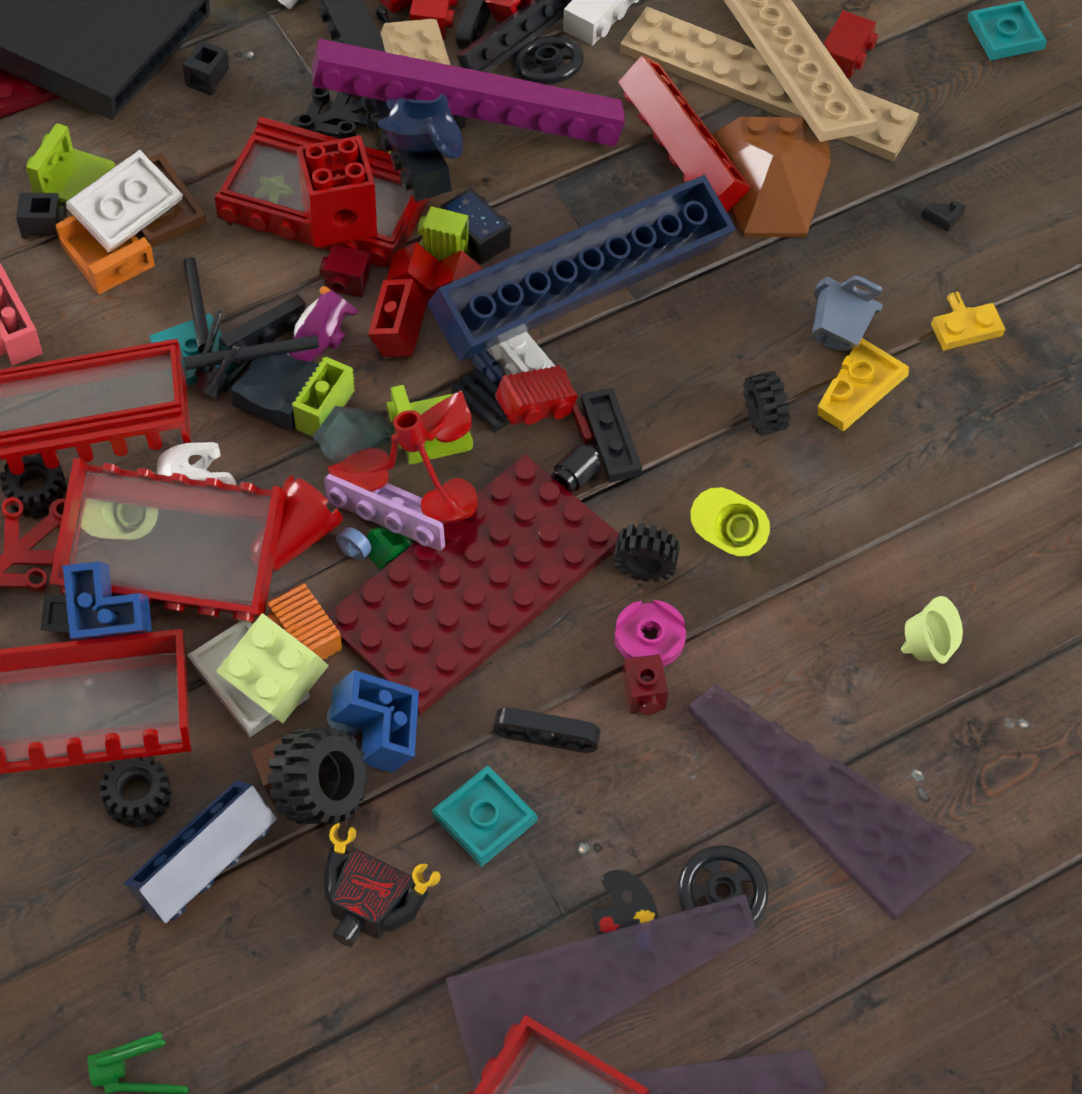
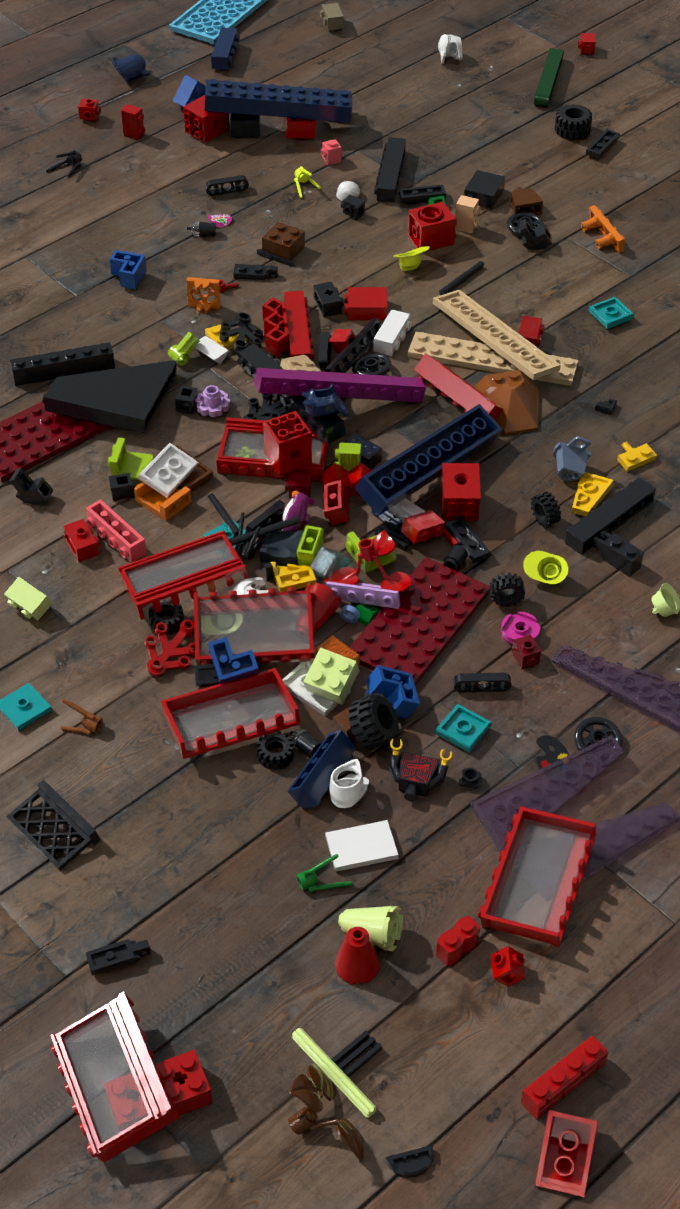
camera: 10 degrees left, 10 degrees down
(192, 783) = (304, 741): none -> black piece
(227, 1018) = (361, 845): none -> white tile
(238, 427) = (267, 570): none -> black tile
(239, 899) = (350, 789): none -> white helmet
(249, 80) = (212, 402): none -> lavender plant
(277, 448) = (292, 576): none -> yellow wing
(465, 910) = (470, 773): none -> black plate
(620, 340) = (460, 491): none -> red brick
(875, 516) = (619, 553): none -> black hinge
(881, 436) = (610, 515): none -> black brick

